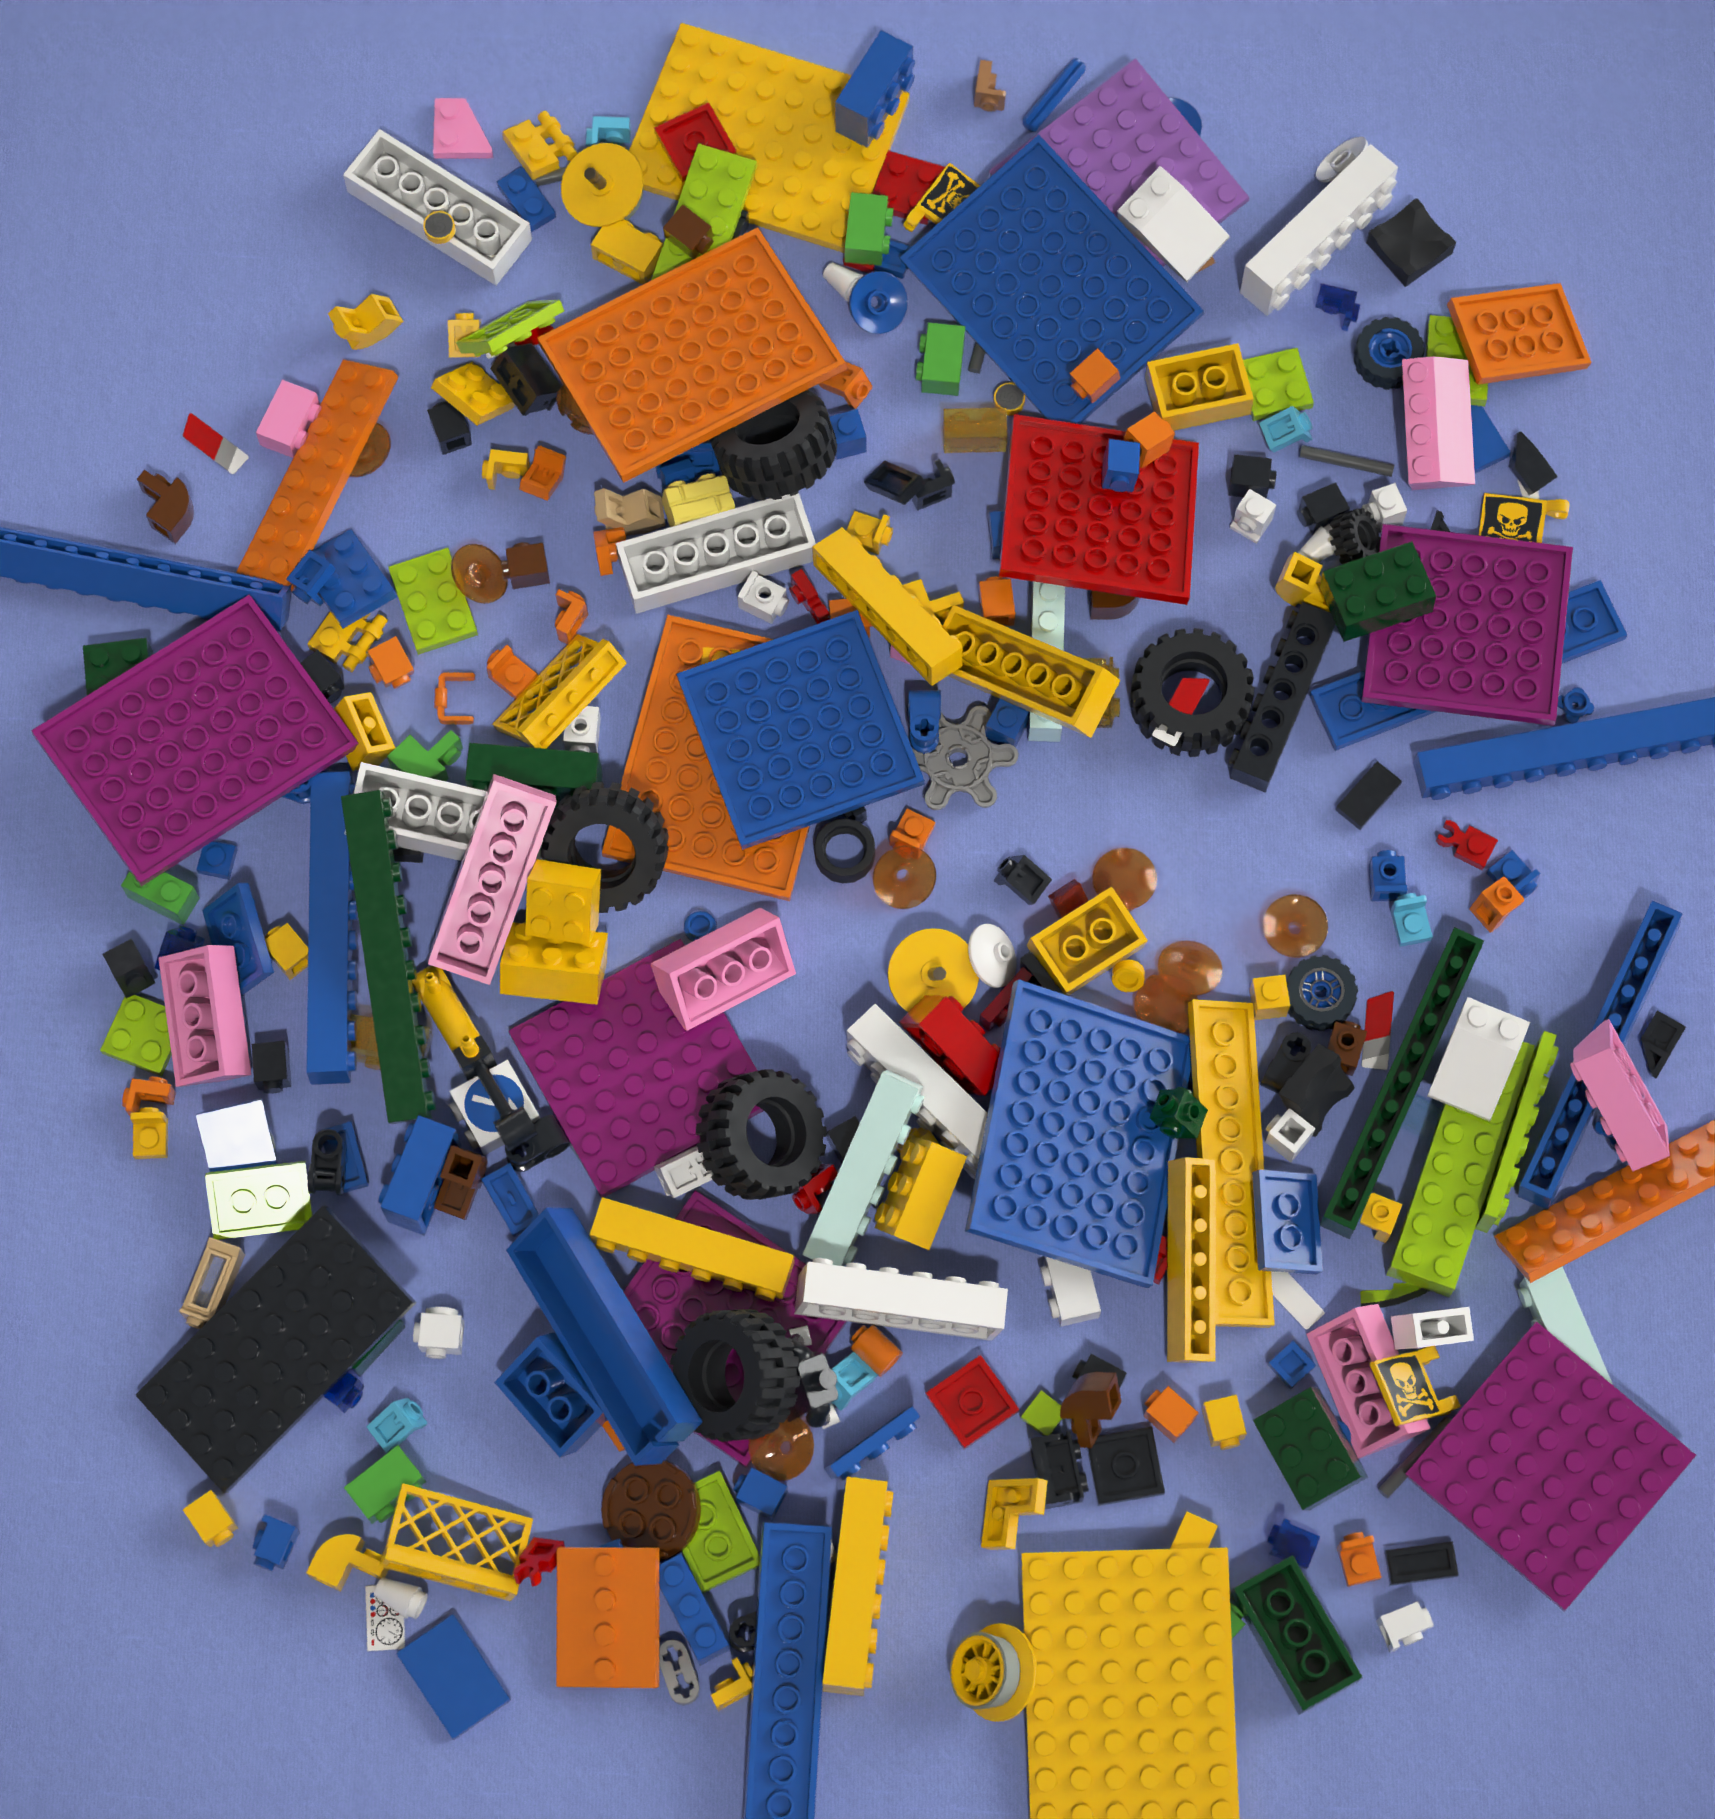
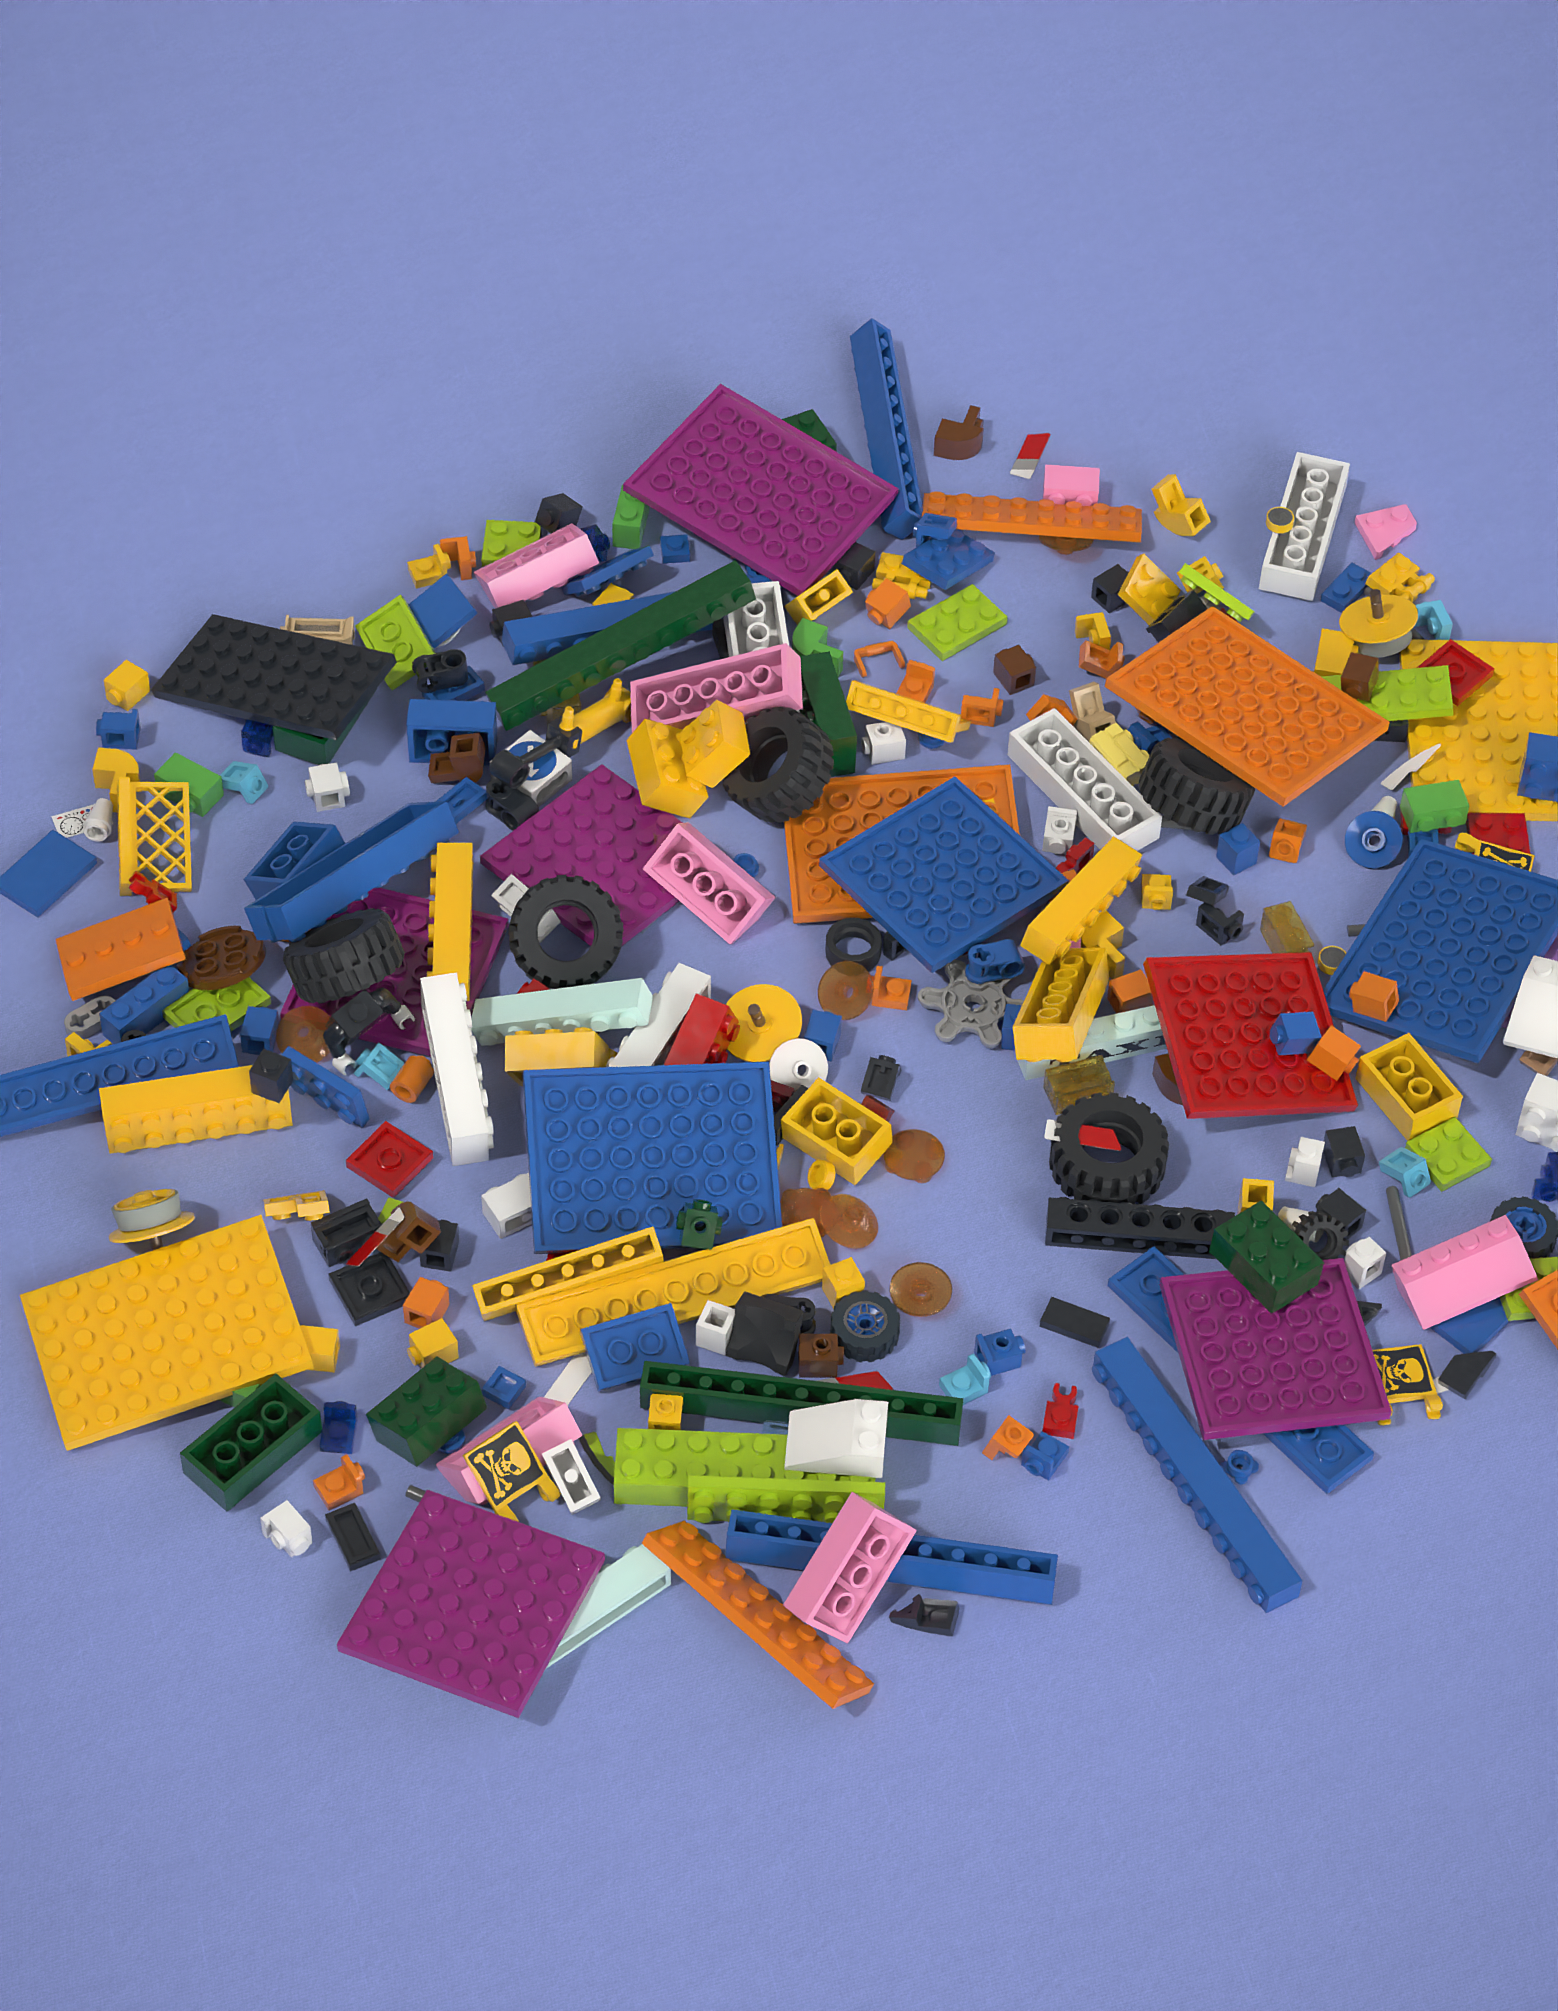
camera: 70 degrees right, 20 degrees down
(478, 573) = (998, 628): clear orange dish -> none
(793, 228) = (1411, 765): none -> white sticker
(879, 1493) = (271, 1075): none -> black brick
(942, 359) = (1343, 899): bright green brick -> none
(951, 915) = (825, 1031): none -> blue brick
(1089, 1441) = (373, 1242): none -> sticker

